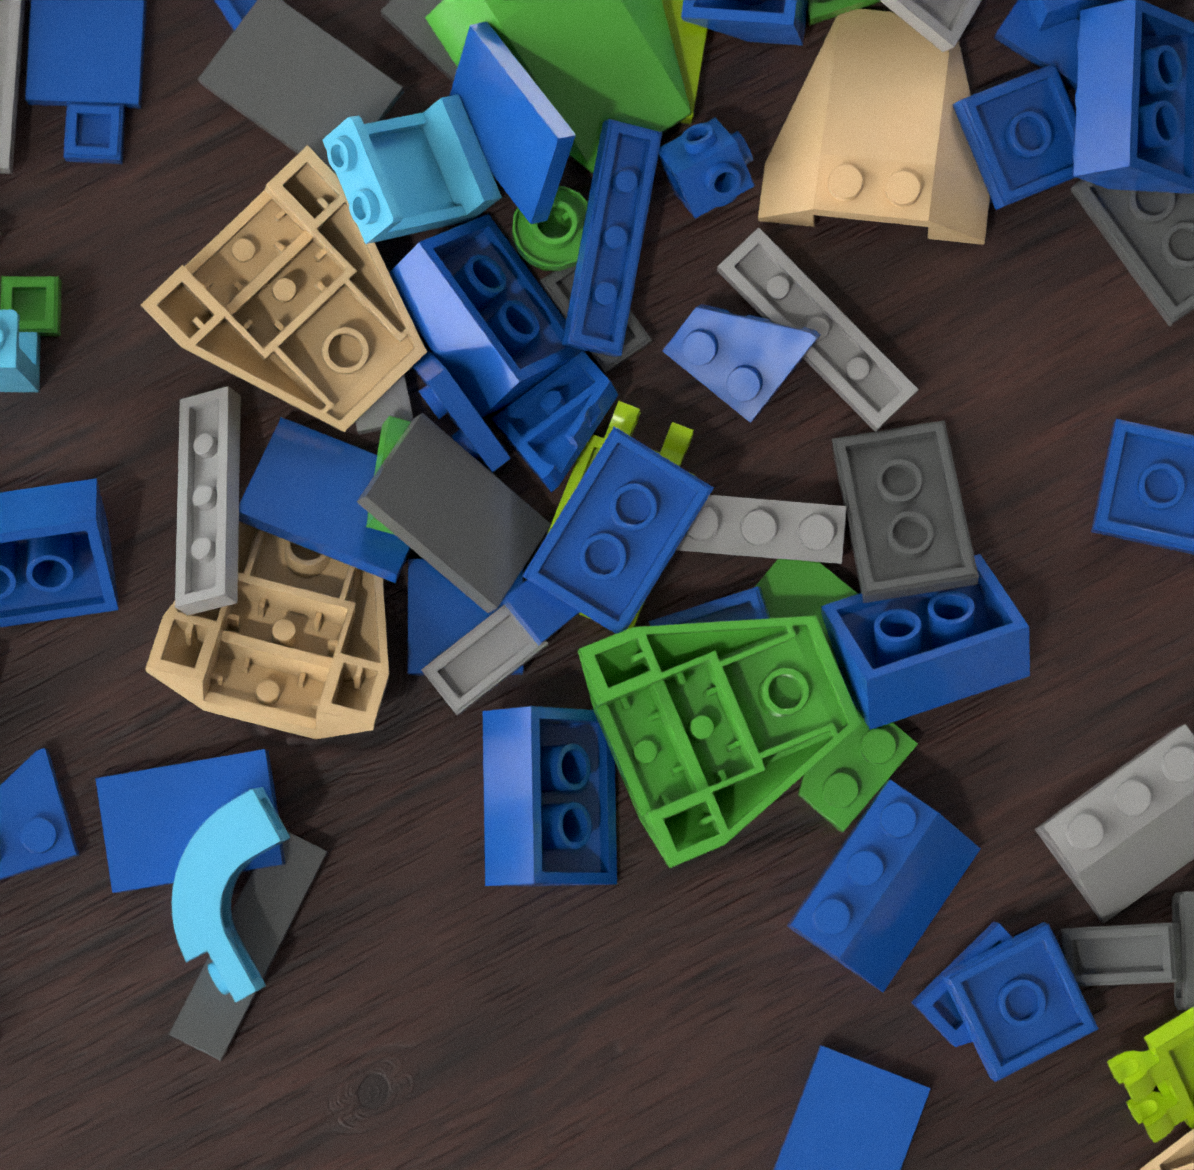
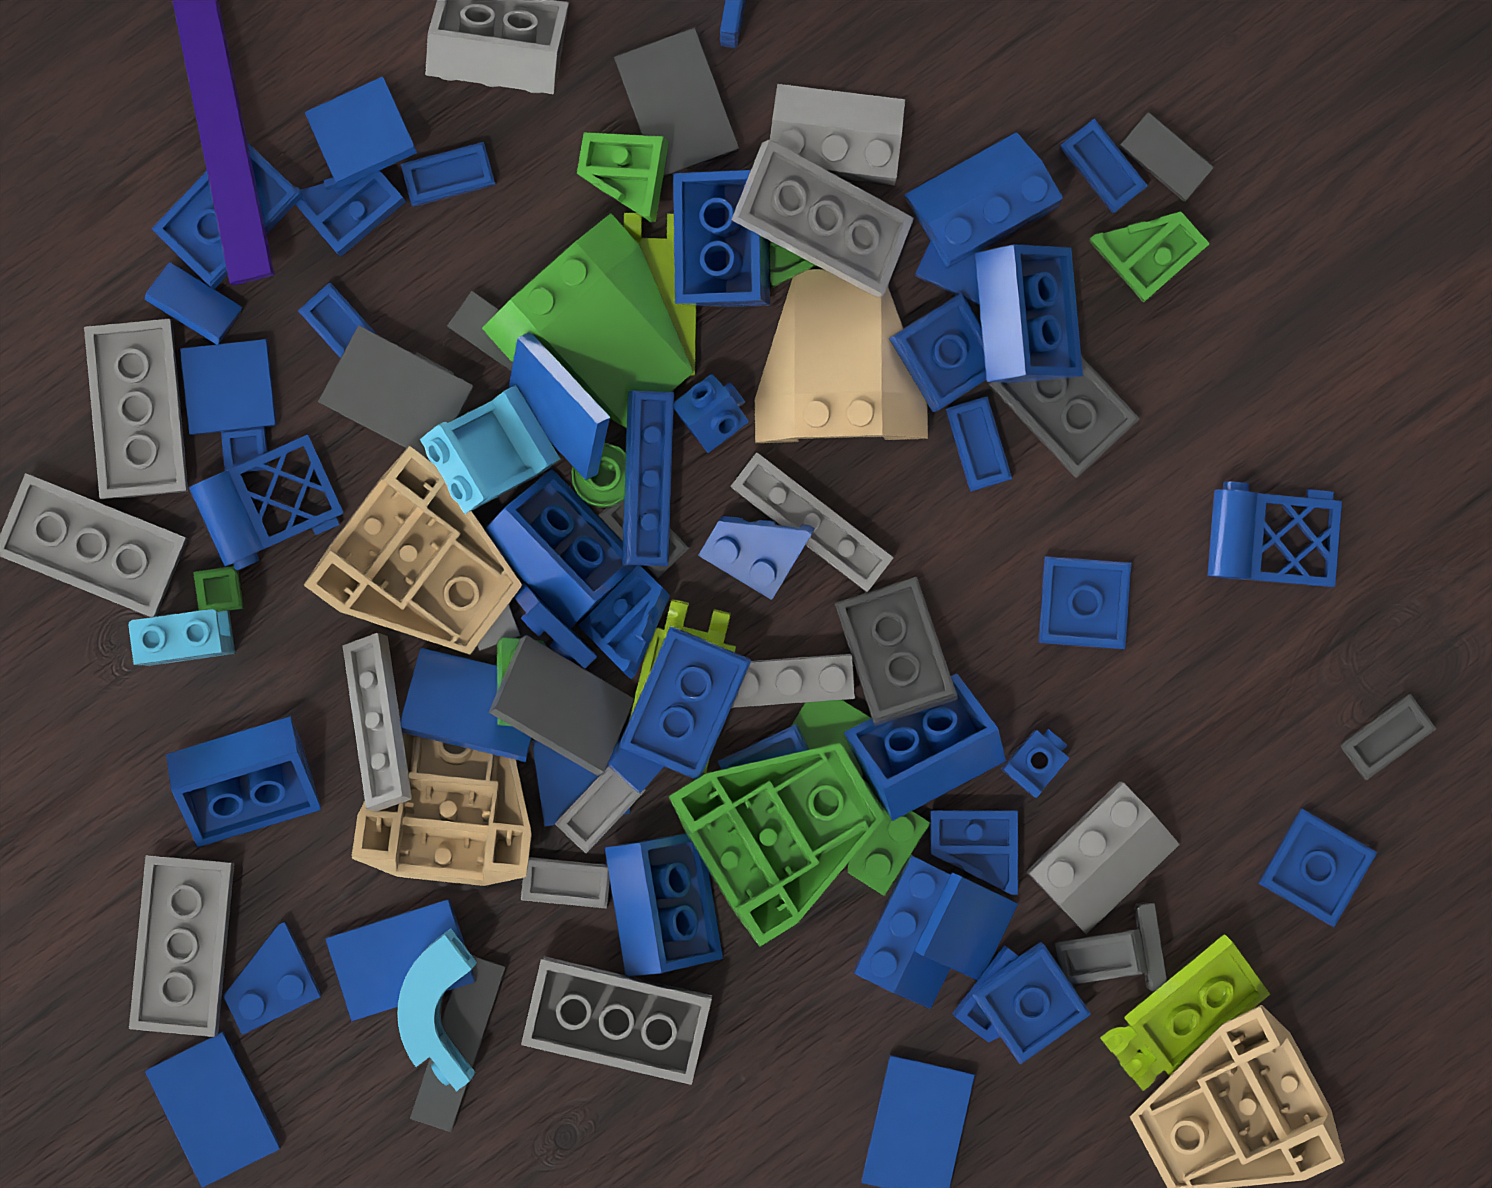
camera: 10 degrees left, 5 degrees up
(65, 214) = (233, 516): none -> blue piece
(424, 753) = (566, 882): none -> light grey tile
(463, 941) = (616, 1020): none -> light grey brick
(947, 886) = (966, 927): none -> blue tile
(978, 781) = (978, 843): none -> blue wing
(1048, 262) = (978, 444): none -> blue tile
(1052, 696) = (1020, 767): none -> blue brick

